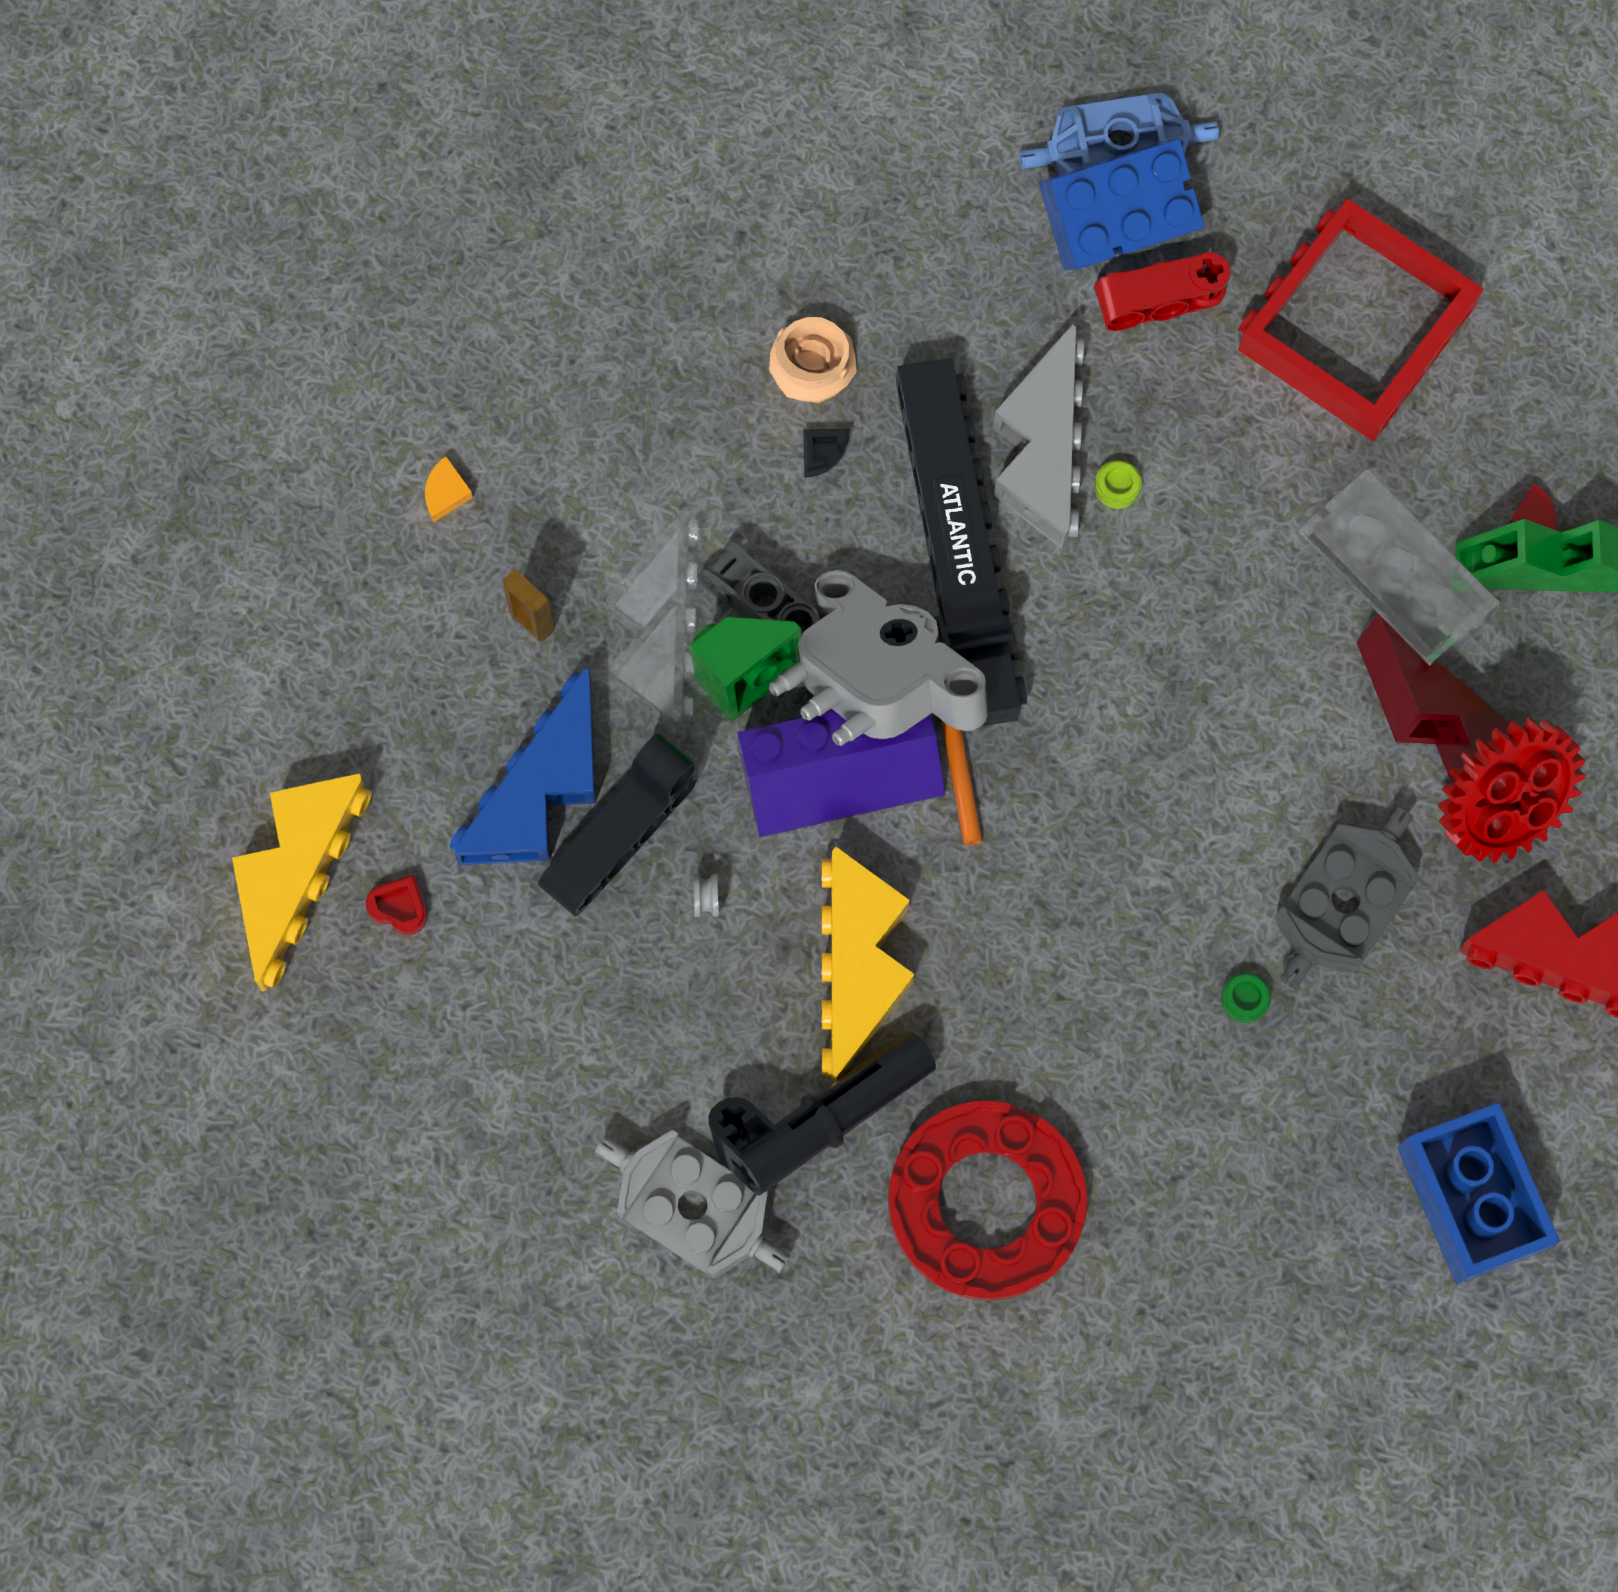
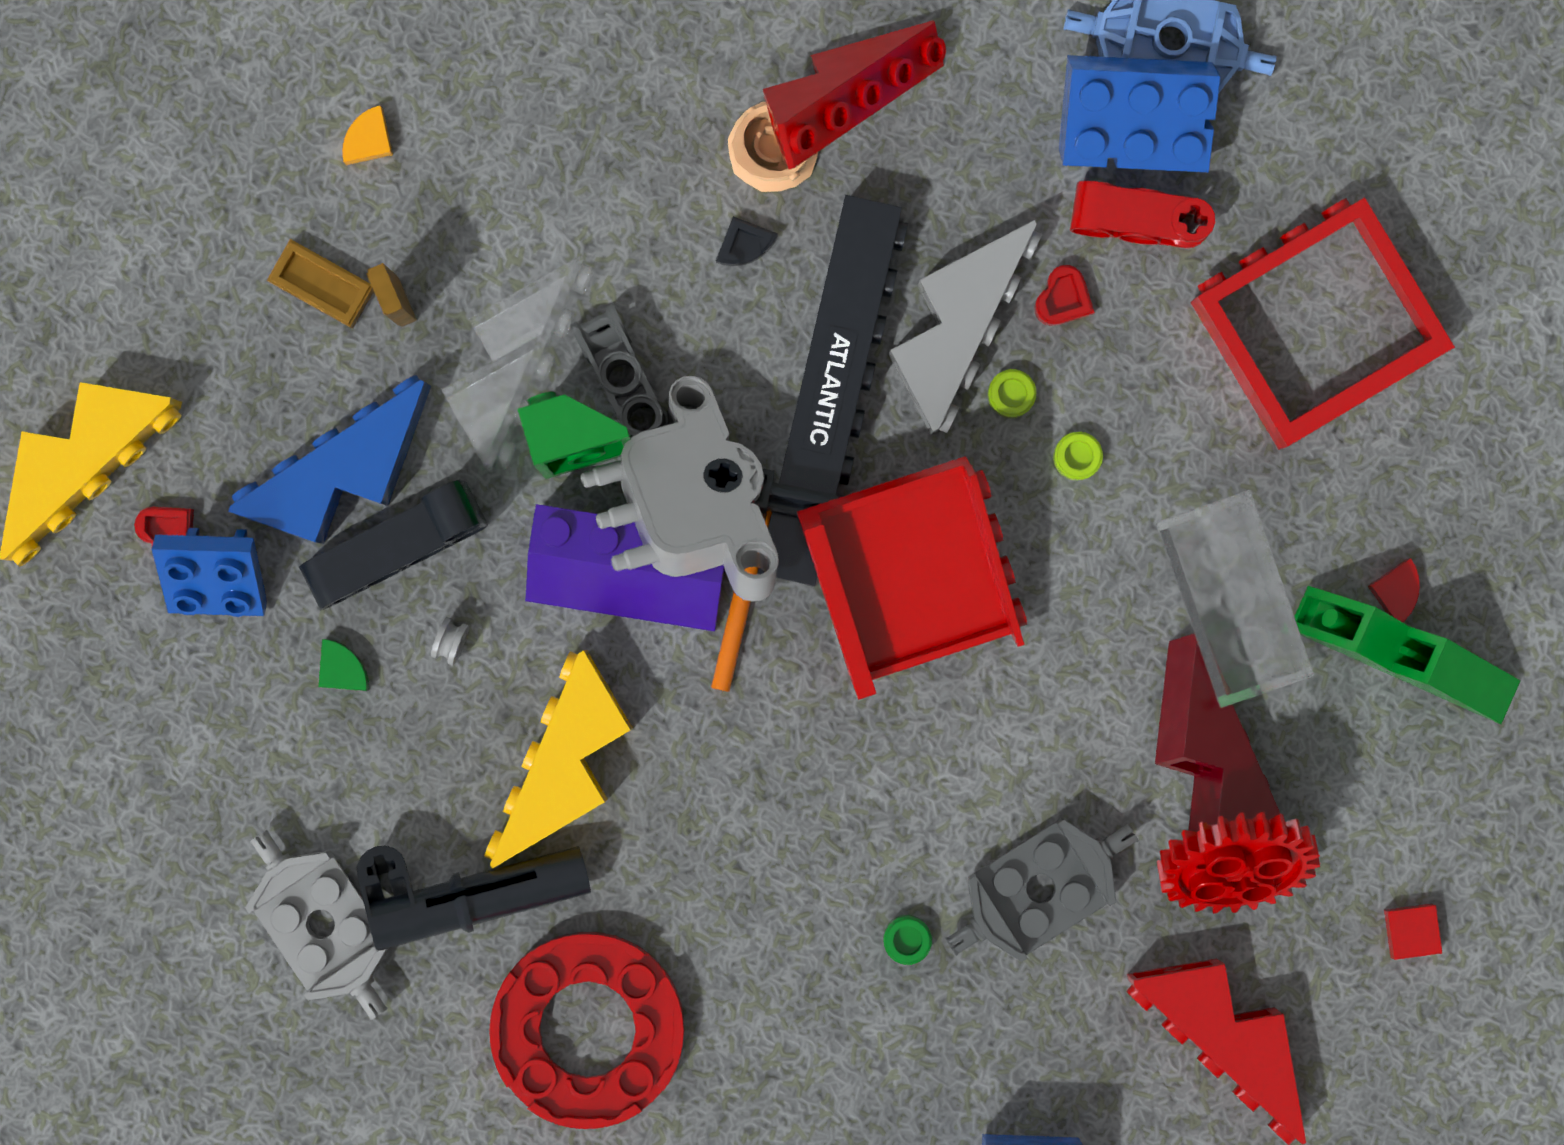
camera: 30 degrees right, 15 degrees up
(453, 631) = (321, 283): none -> pearl gold tile
(460, 918) = (210, 574): none -> blue plate
(614, 963) = (341, 668): none -> green tile
(861, 277) = (849, 88): none -> red slope
(1104, 658) = (912, 571): none -> red panel
(1126, 387) = (1064, 298): none -> red tile
(1201, 514) = (1078, 456): none -> lime tile

